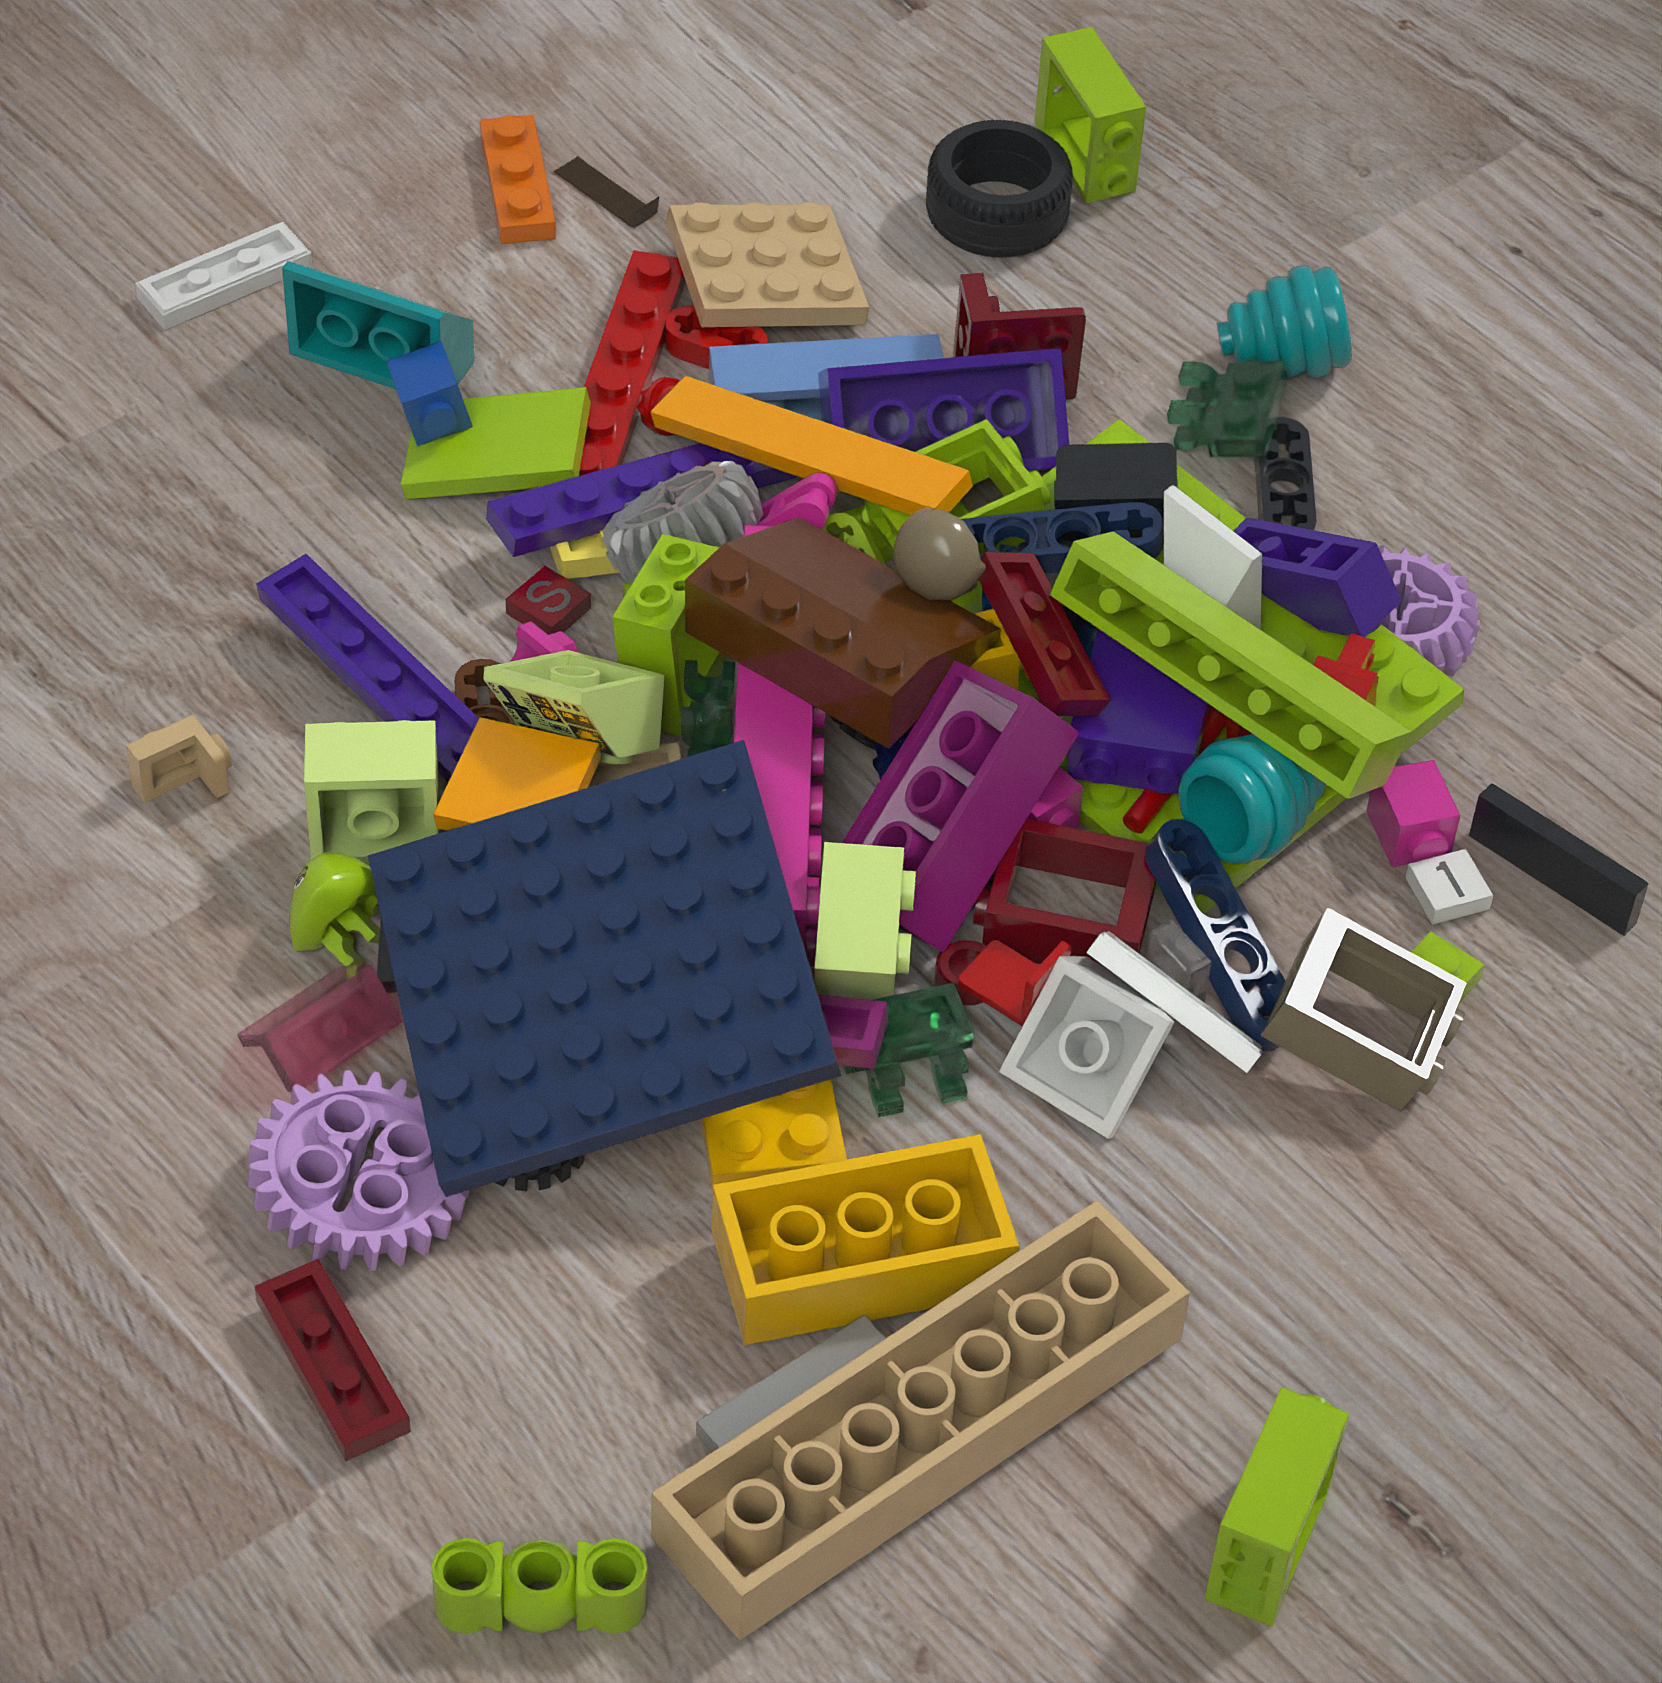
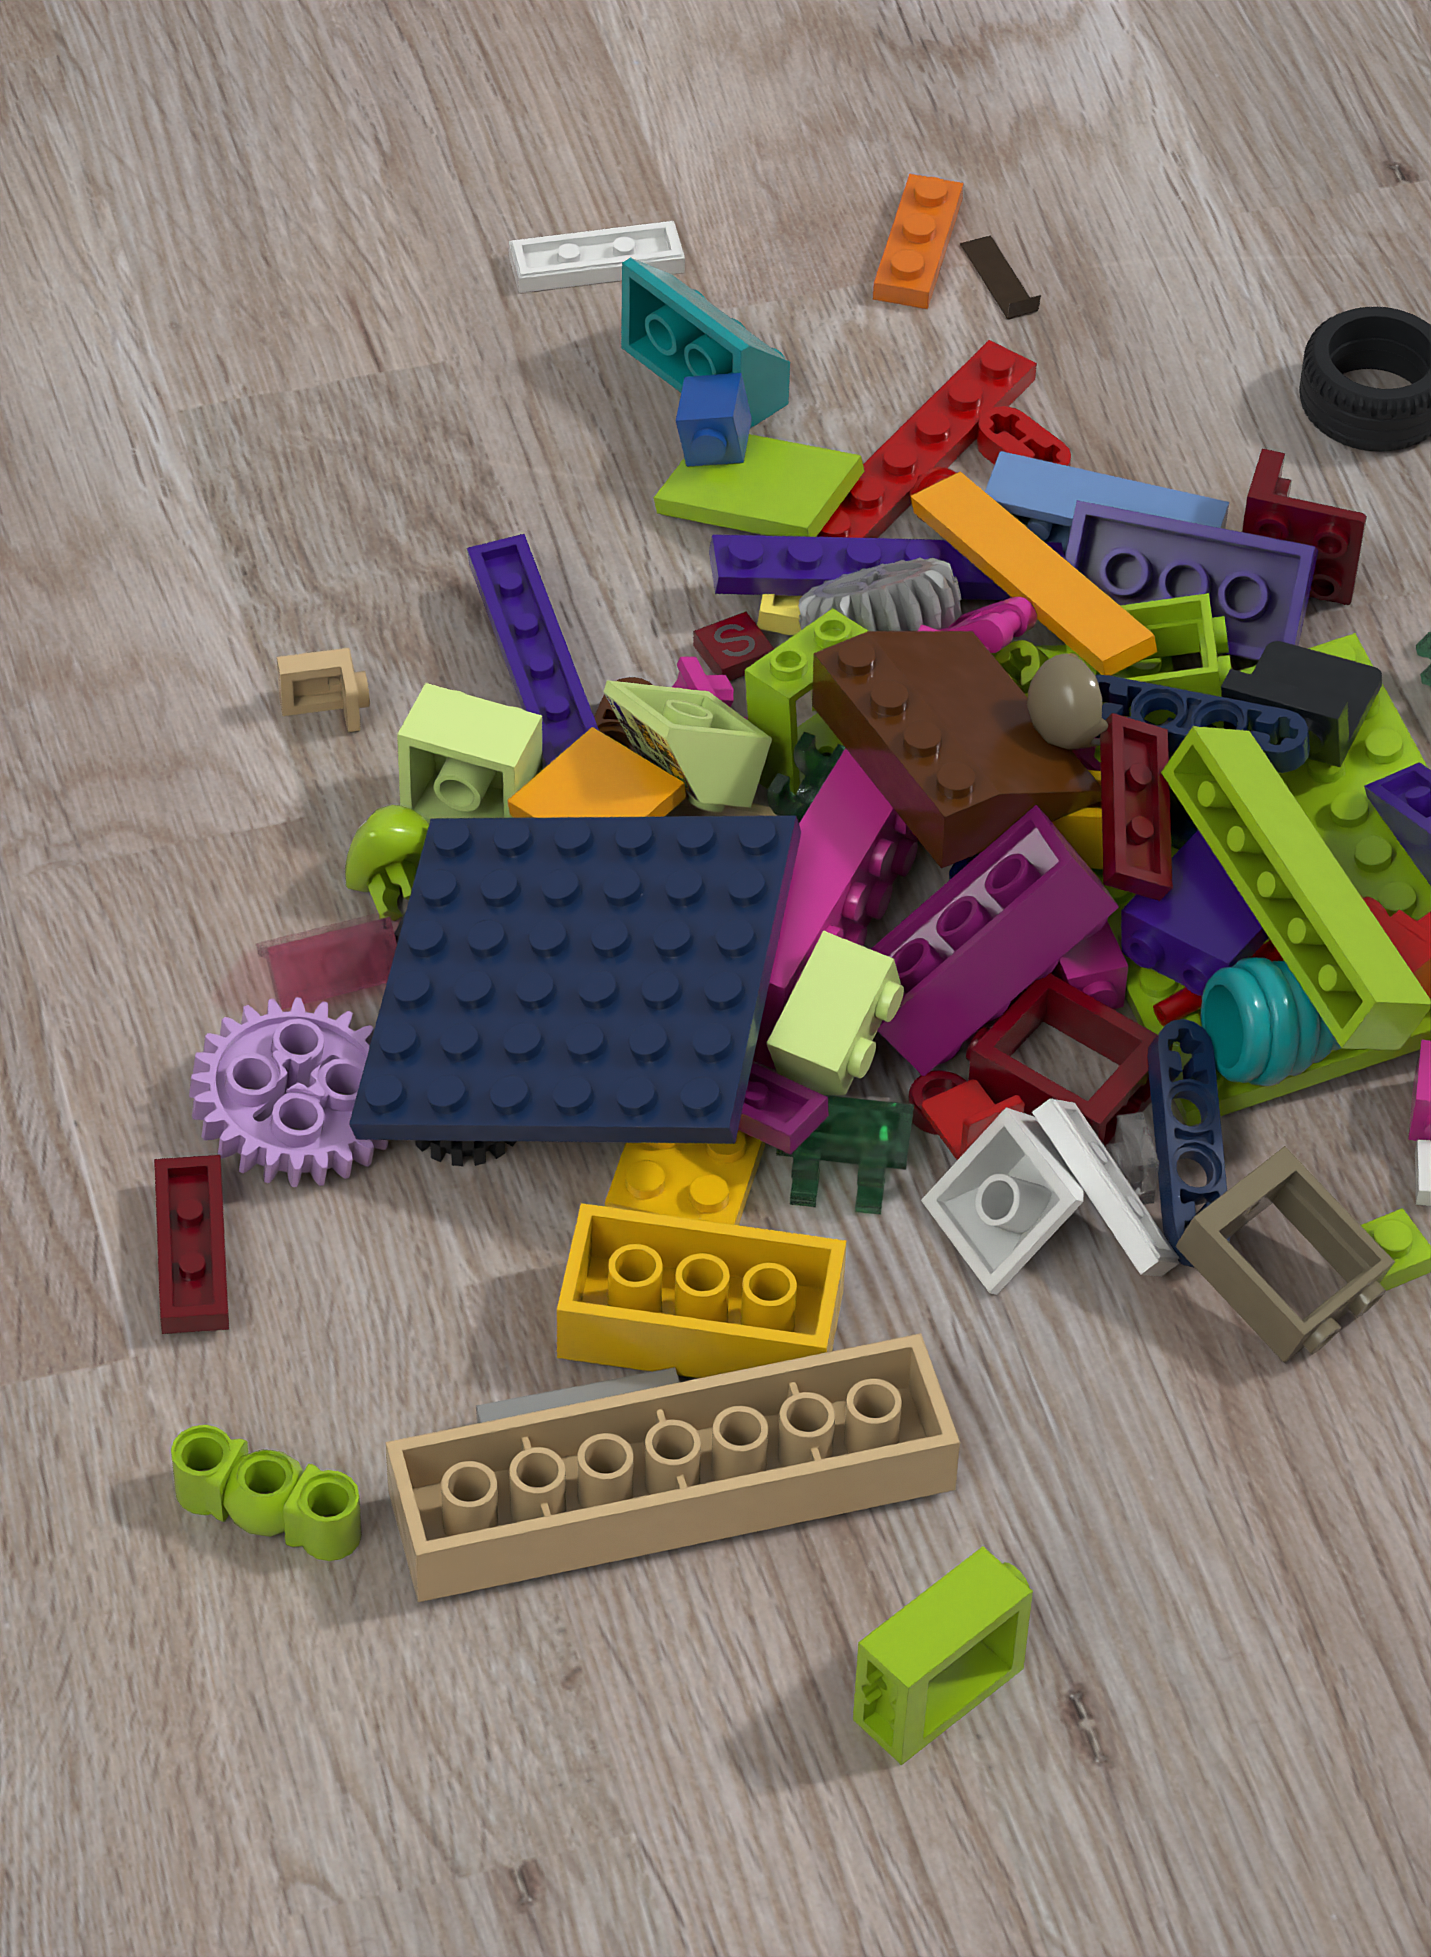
camera: 25 degrees right, 0 degrees up
(766, 265) = (1108, 390): tan plate -> none
(1212, 556) = (1337, 796): white slope -> none

